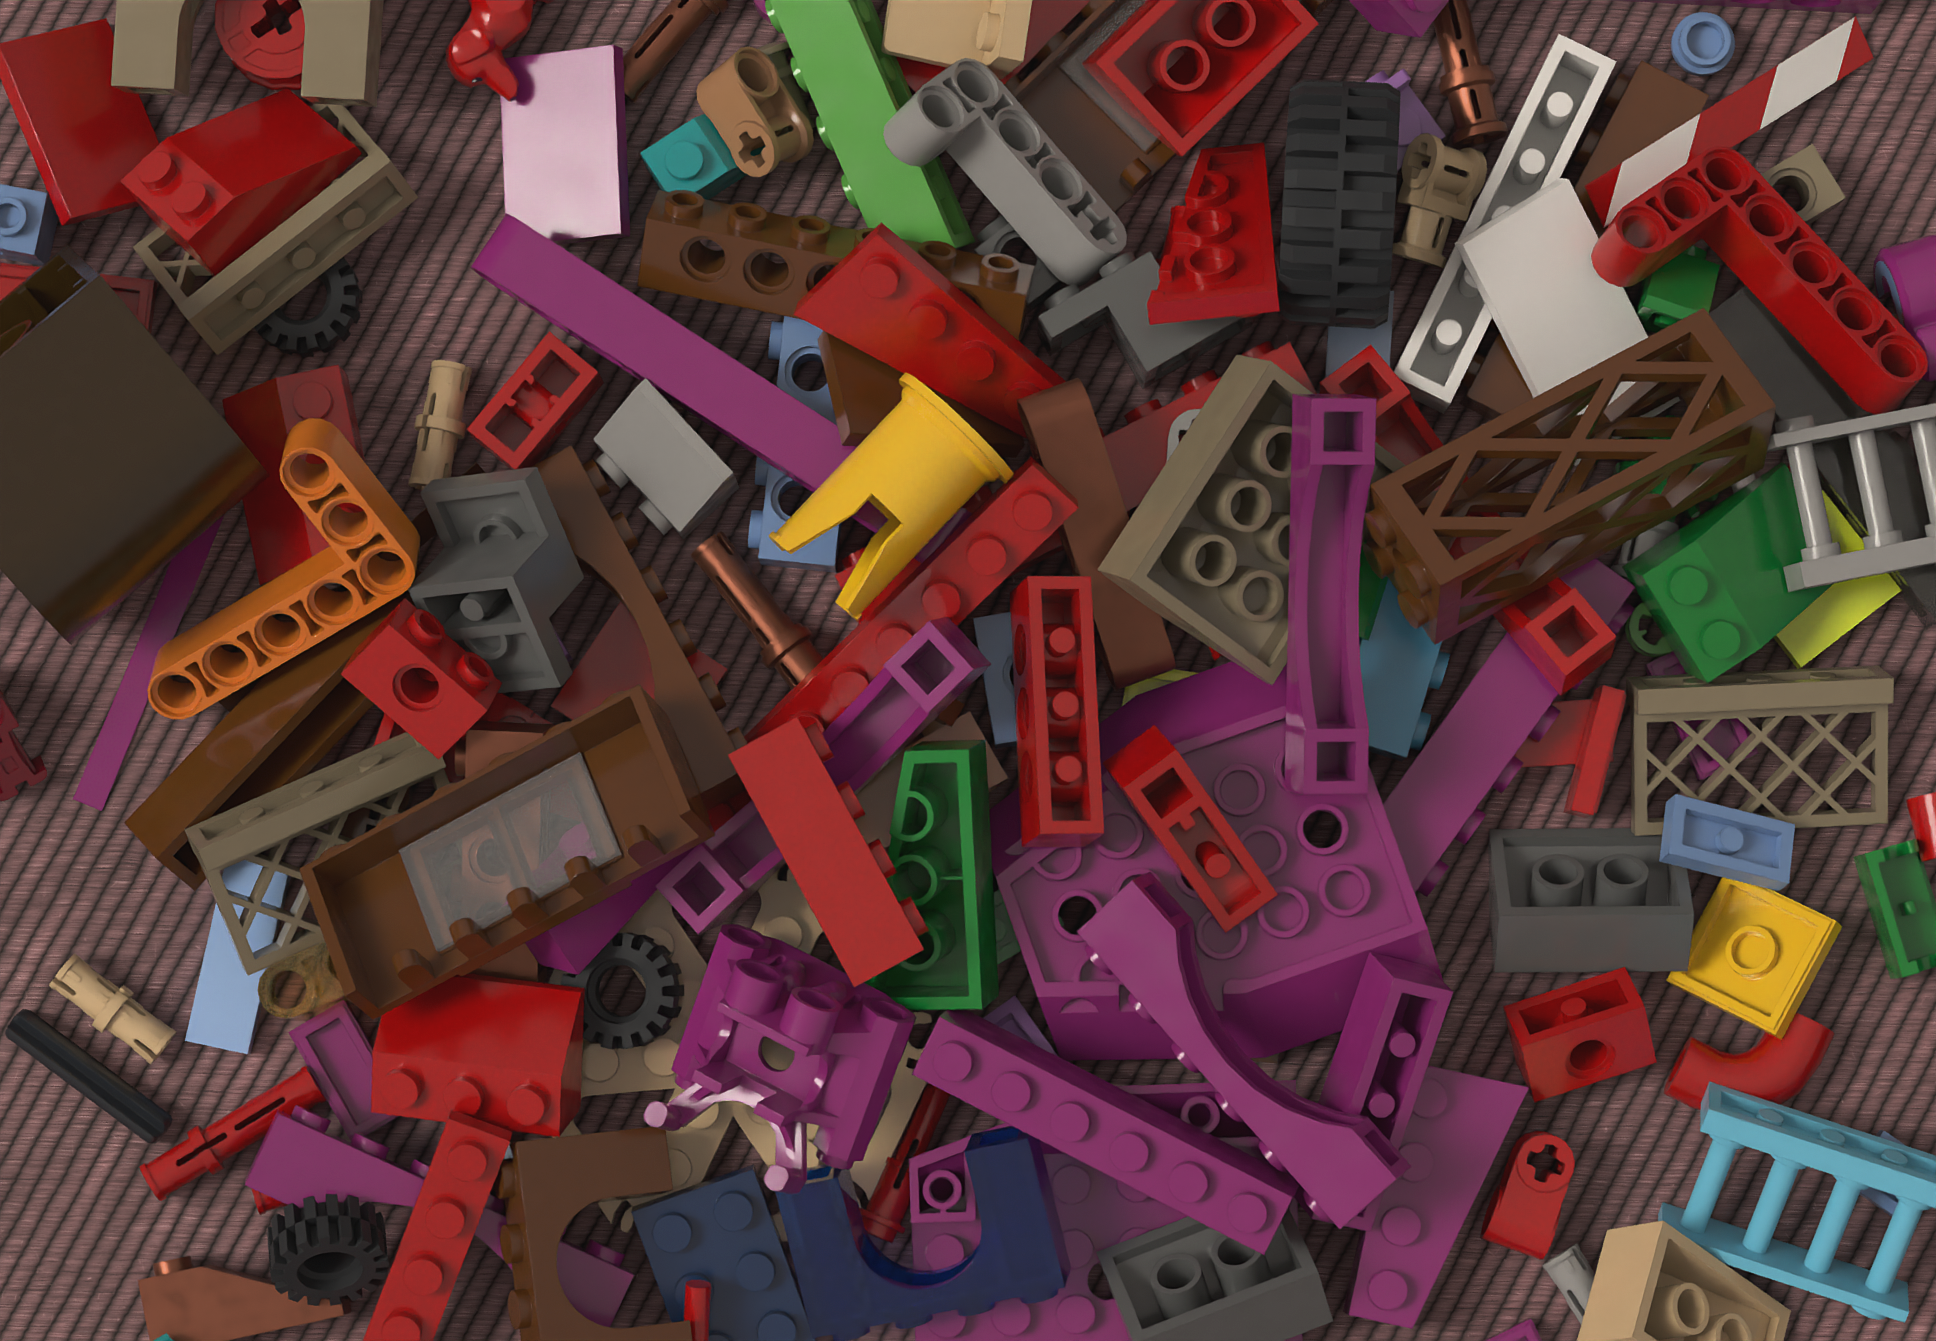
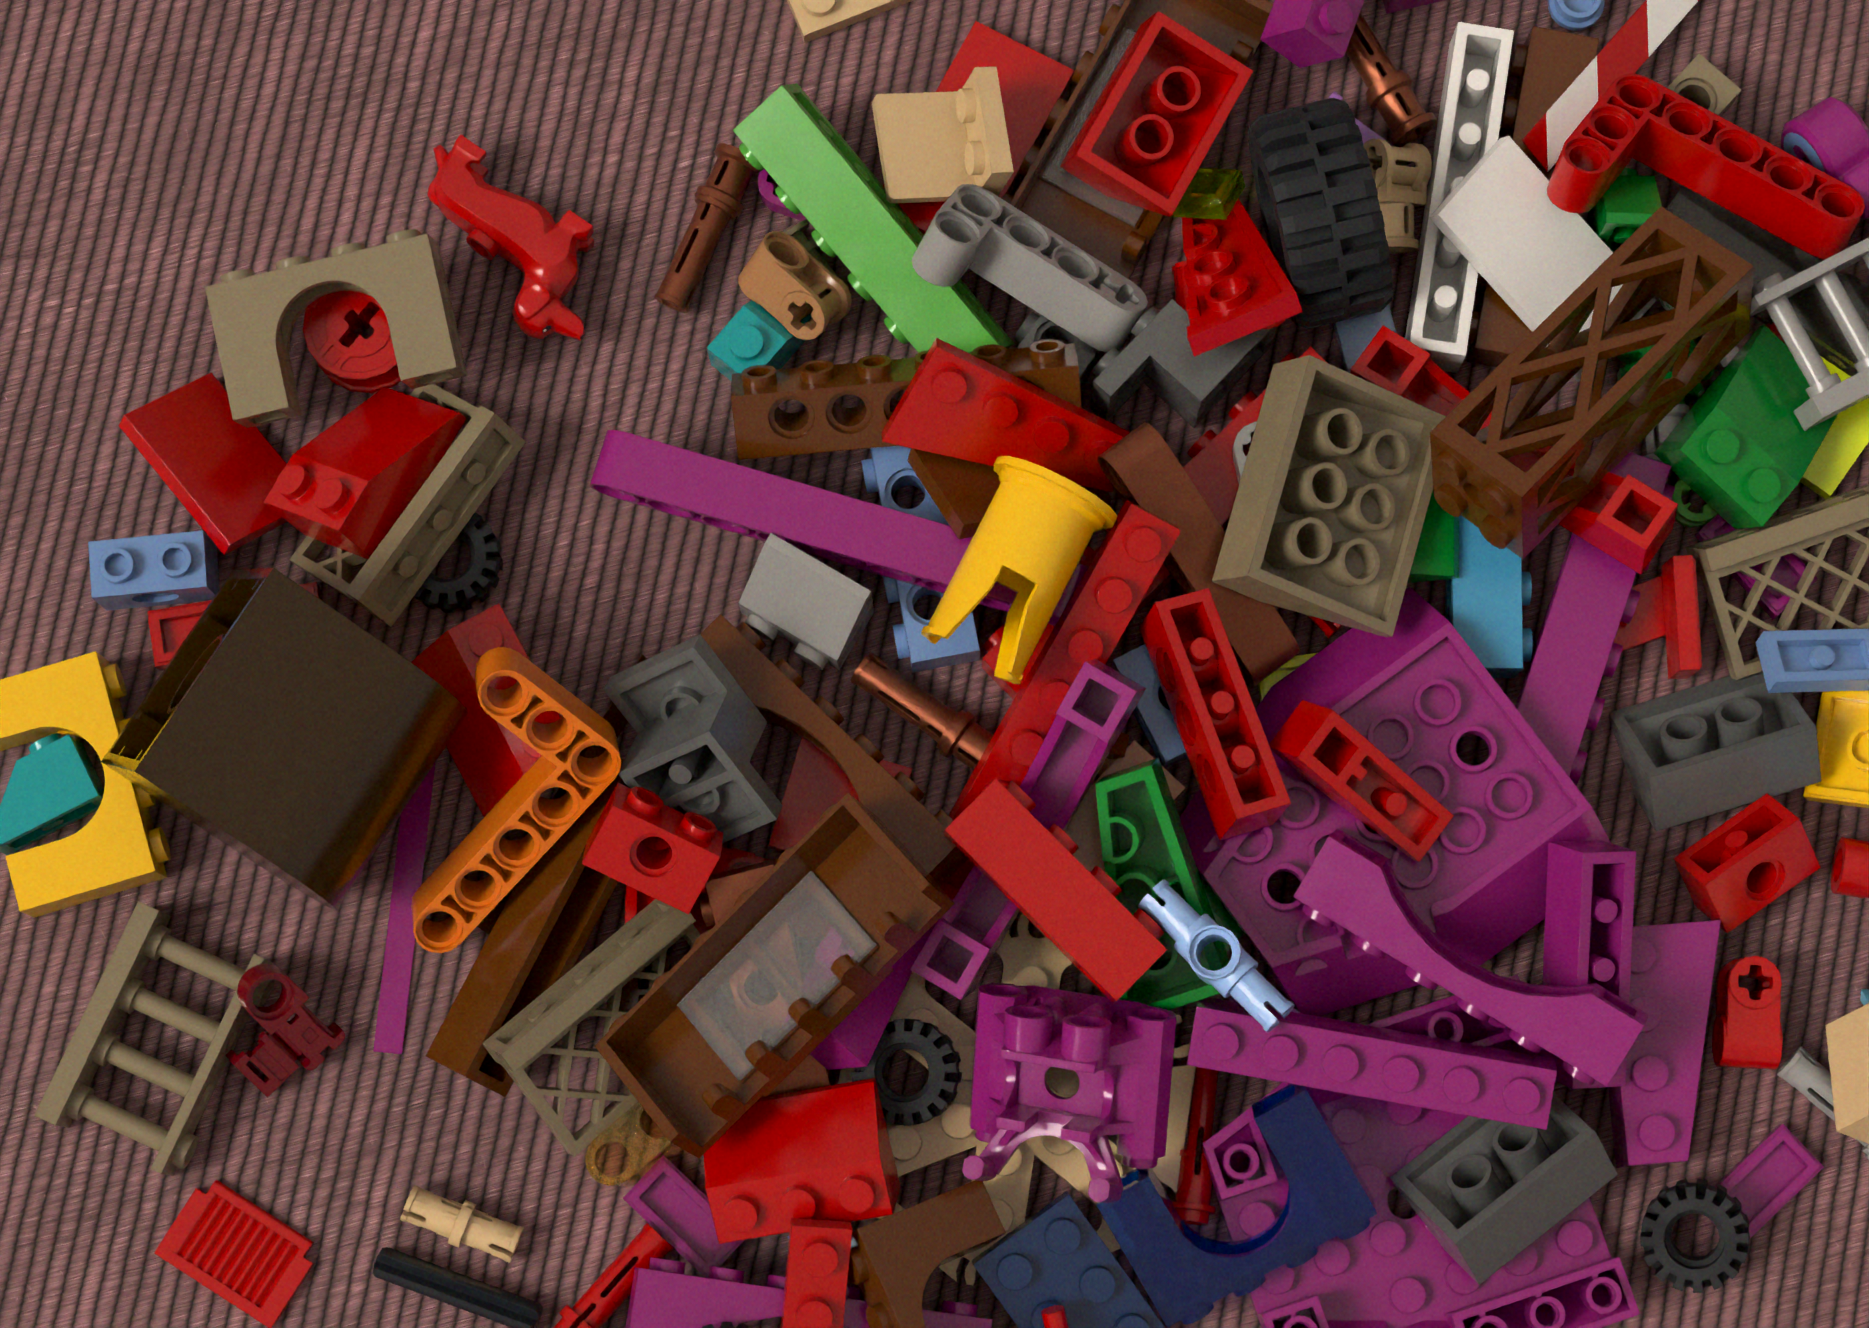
camera: 15 degrees left, 5 degrees down
(226, 997) = (558, 1181): light blue tile -> none
(440, 423) = (599, 630): tan pin -> none
(535, 404) = (679, 587): red brick -> none
(567, 145) = (641, 360): tile -> none
(993, 998) = (1236, 979): none -> light blue pin
(1237, 141) = (1211, 194): none -> clear neon green tile
(1327, 511) = (1394, 451): magenta arch -> none

